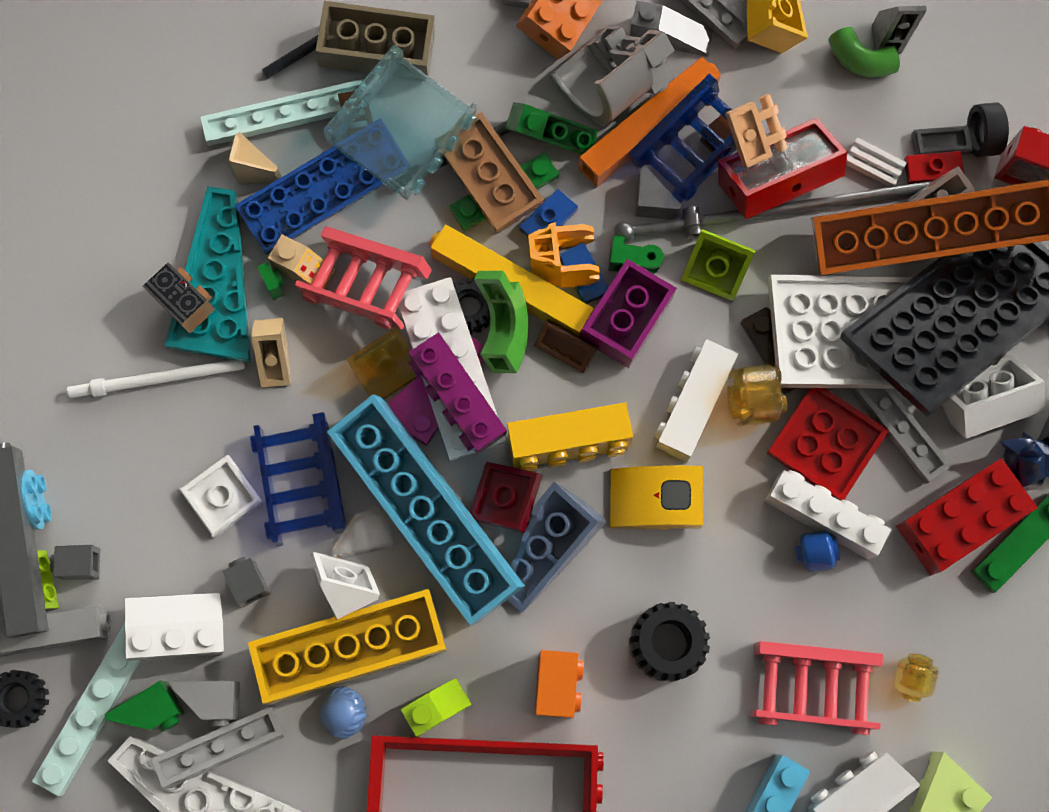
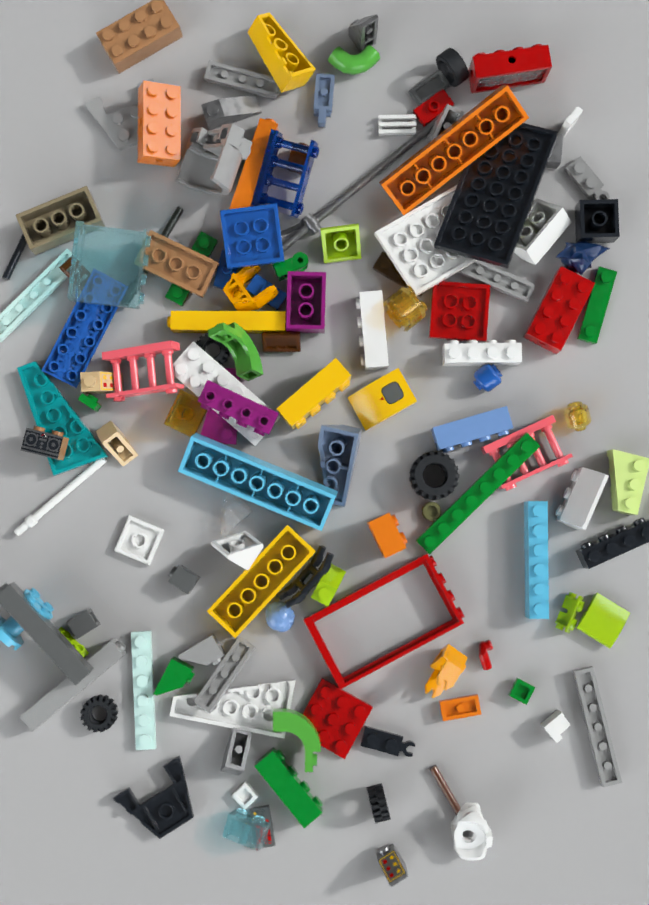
camera: 25 degrees left, 10 degrees up
(173, 626) = (160, 625): white slope -> none
(251, 164) = (34, 340): tan slope -> none
(327, 488) = (183, 488): clear blue fence -> none
(382, 685) = (299, 582): none -> black piece
(505, 496) = (298, 448): dark red plate -> none
(550, 128) = (195, 215): green slope -> none
(606, 190) = (252, 236): none -> blue plate
(637, 690) = (431, 511): none -> olive tile
(717, 702) = (478, 492): none -> green plate
(749, 132) = (315, 154): light nougat plate -> none
(758, 608) = (472, 428): none -> medium blue brick
(798, 78) = (323, 97): none -> sand blue hinge
(807, 164) = (345, 162): red brick -> none

